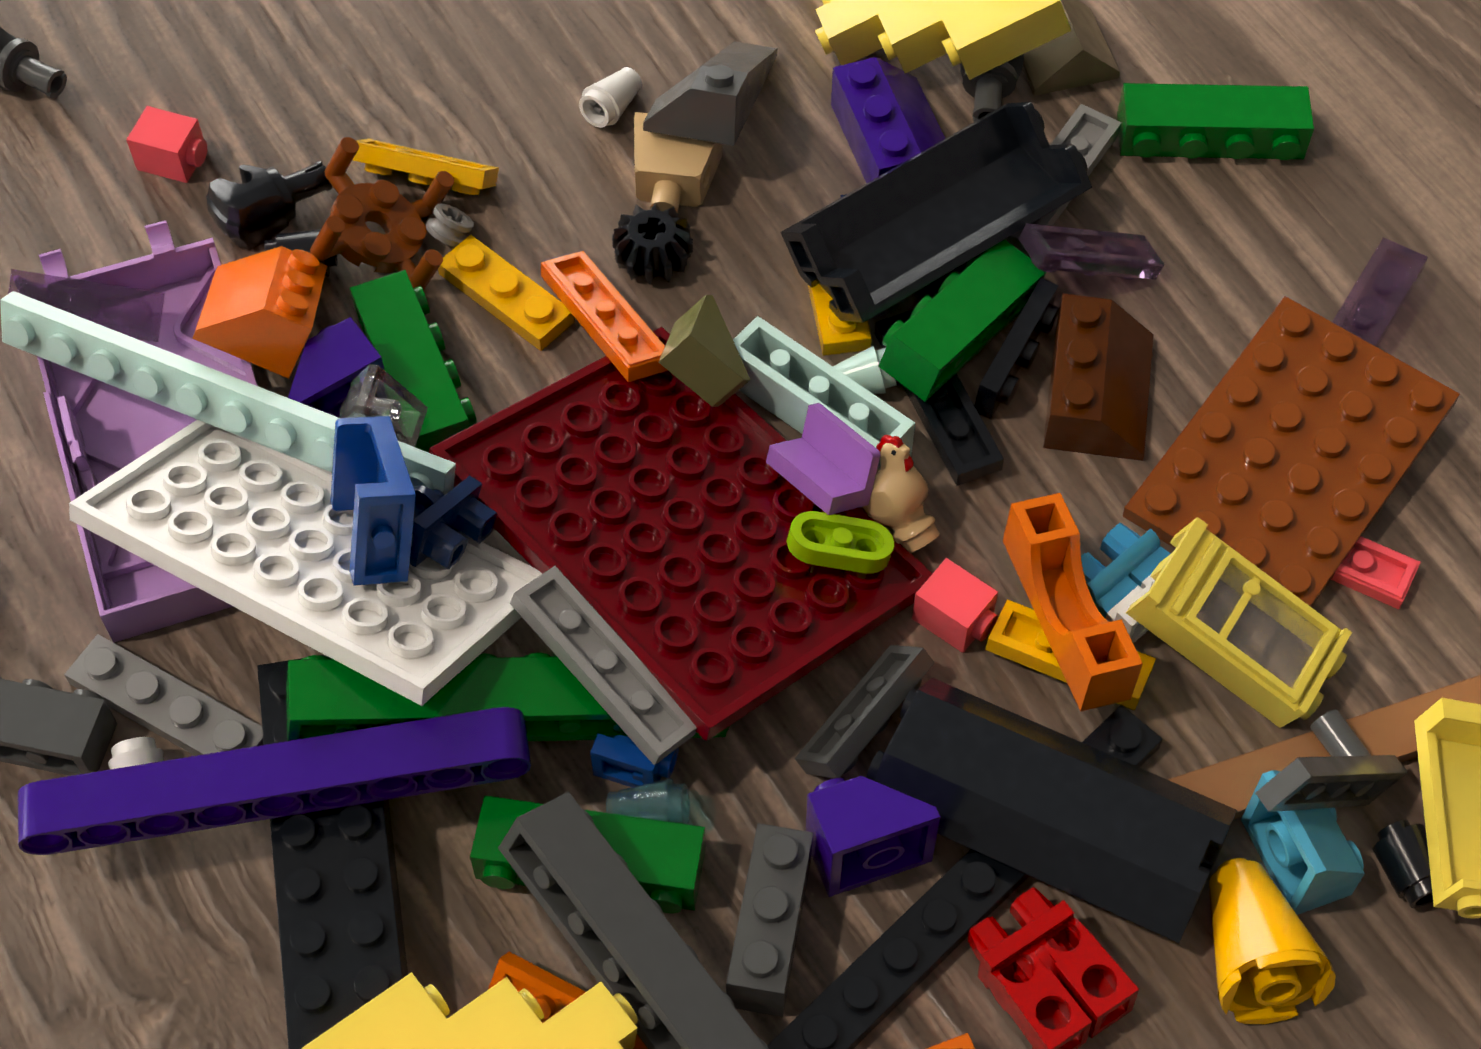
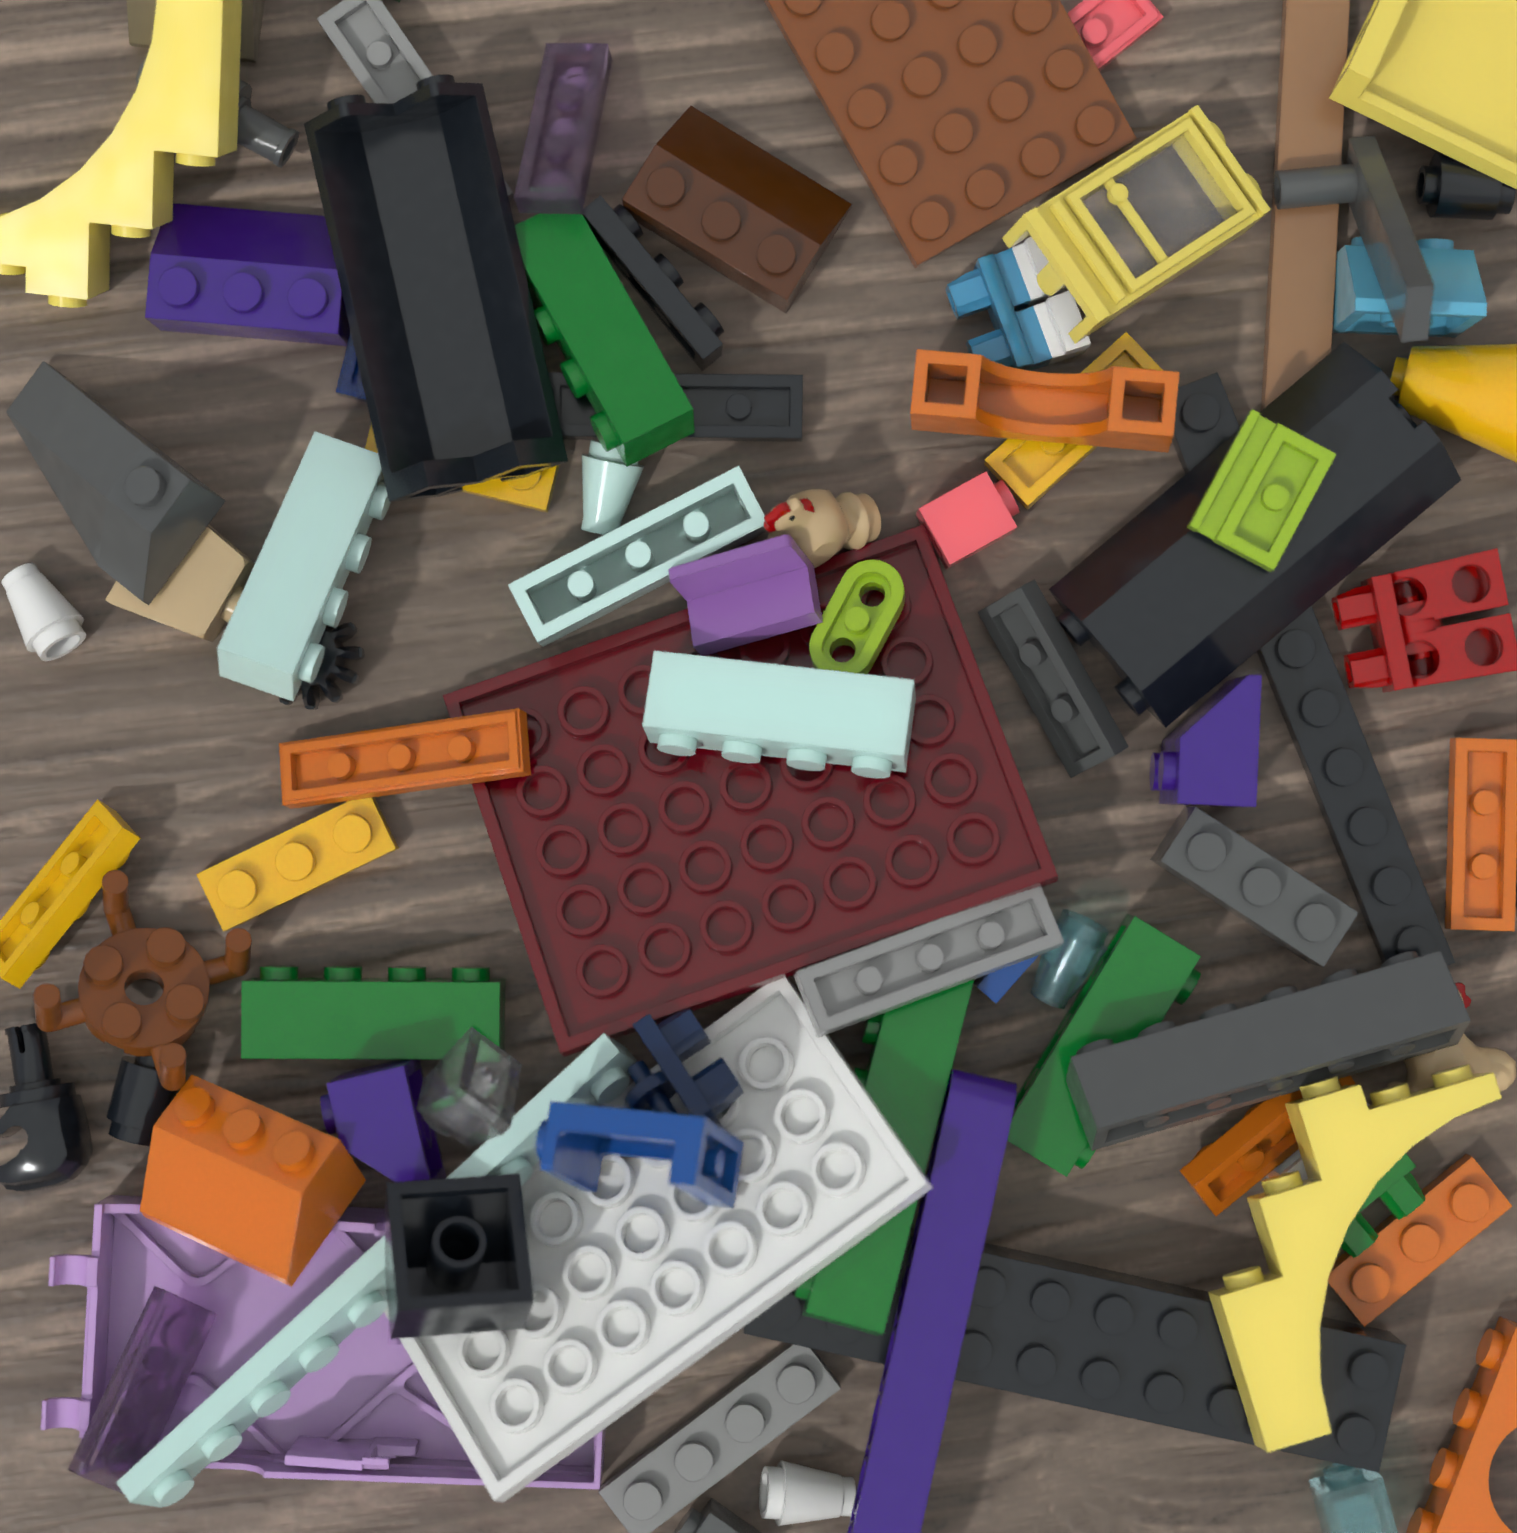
camera: 70 degrees left, 30 degrees up
(248, 418) = (456, 1256): none -> black slope
(449, 224) = (181, 908): light grey bush -> none
(704, 354) = (531, 672): olive slope -> none
(707, 200) = (304, 568): none -> light aqua brick
(748, 510) = (779, 713): none -> light aqua brick
(1085, 764) = (1261, 490): none -> lime plate

